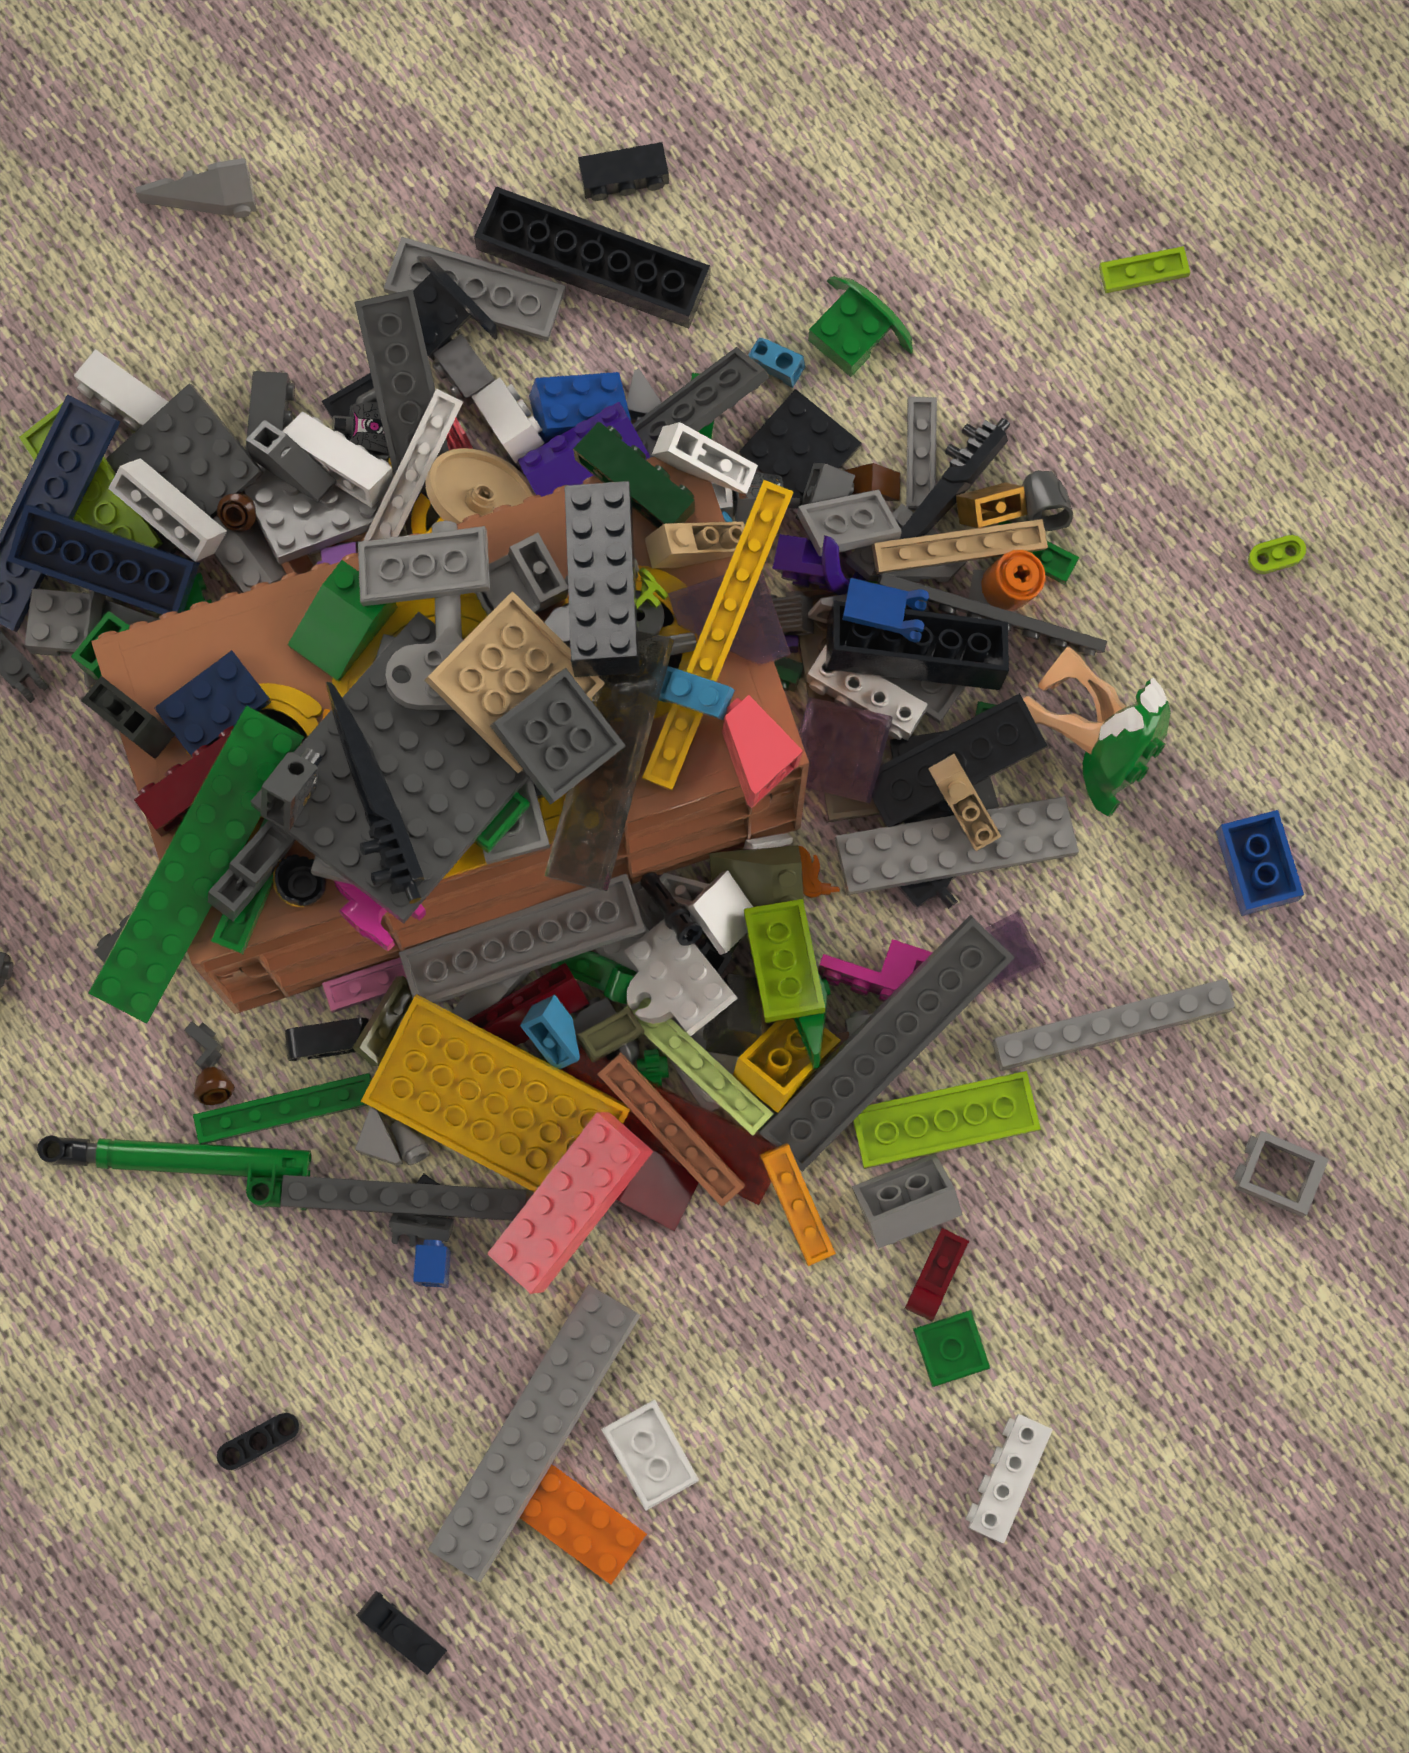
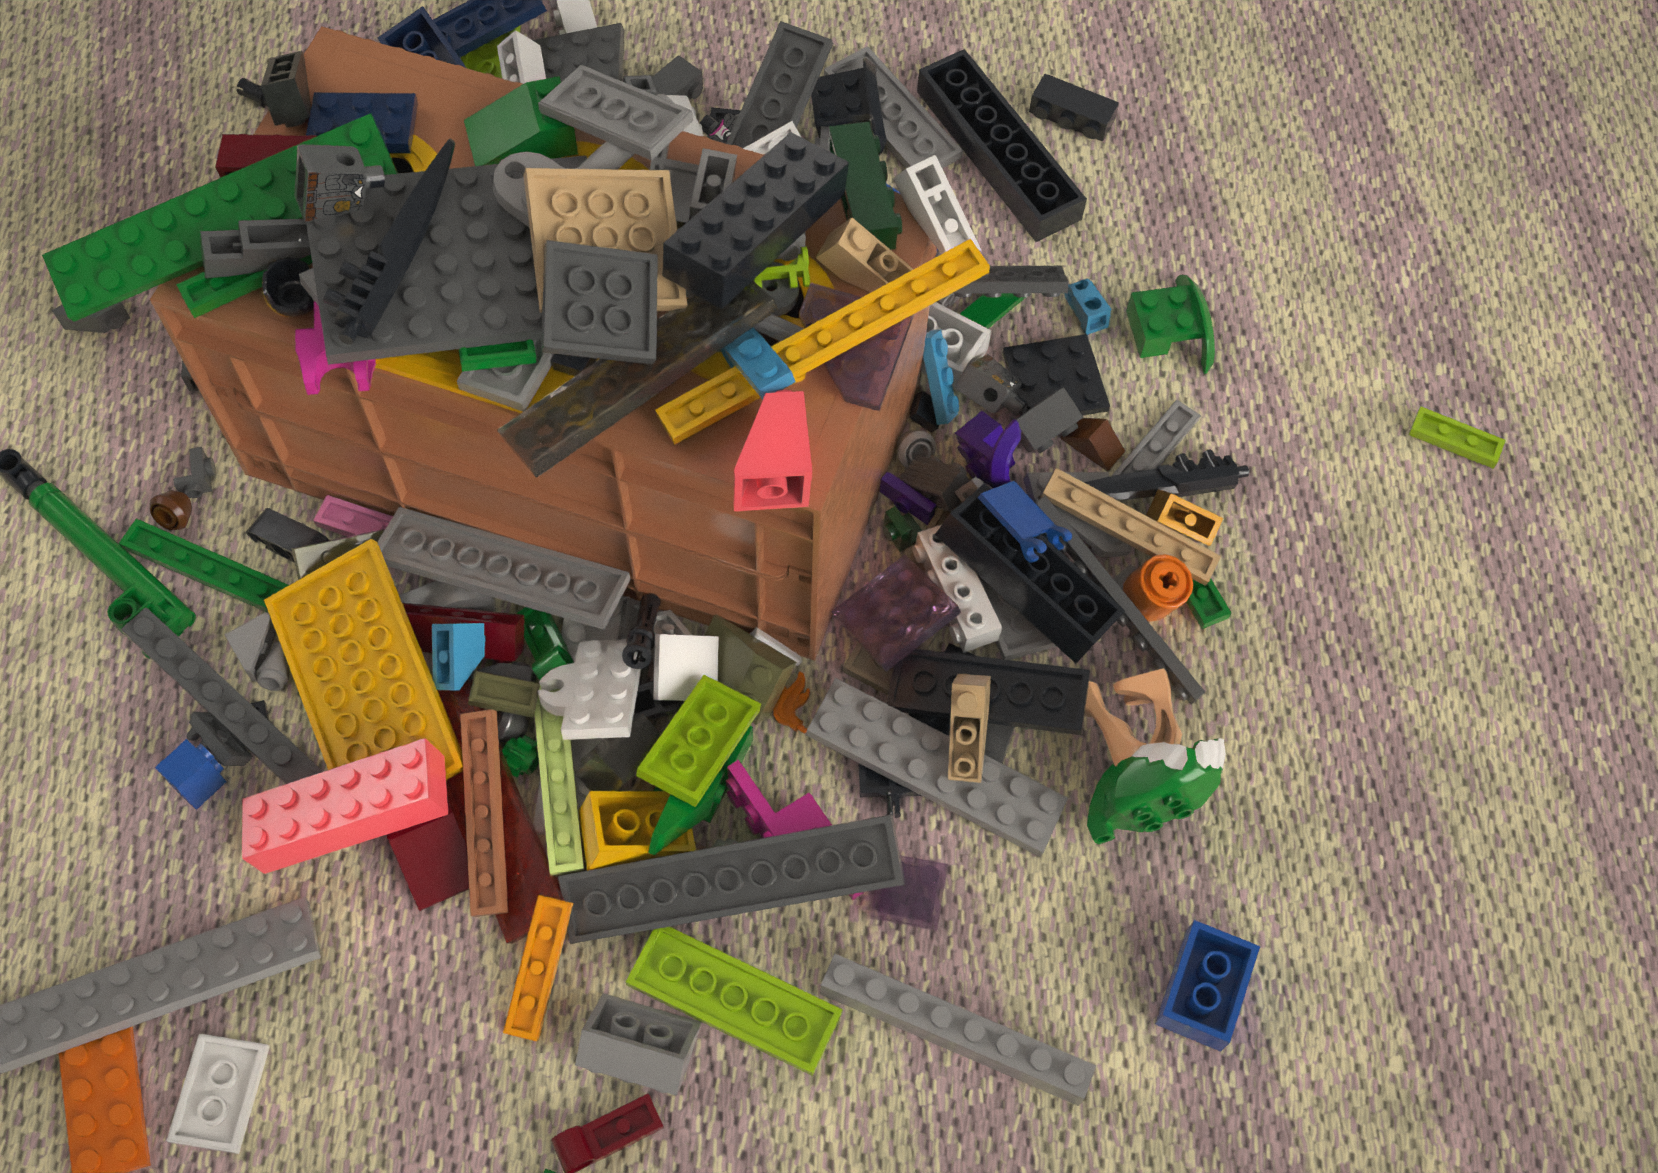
camera: 35 degrees right, 15 degrees down
(850, 521) = (1051, 443): light grey plate -> none
(1047, 492) = (1240, 544): dark grey helmet -> none
(1275, 553) = (1417, 732): lime plate -> none

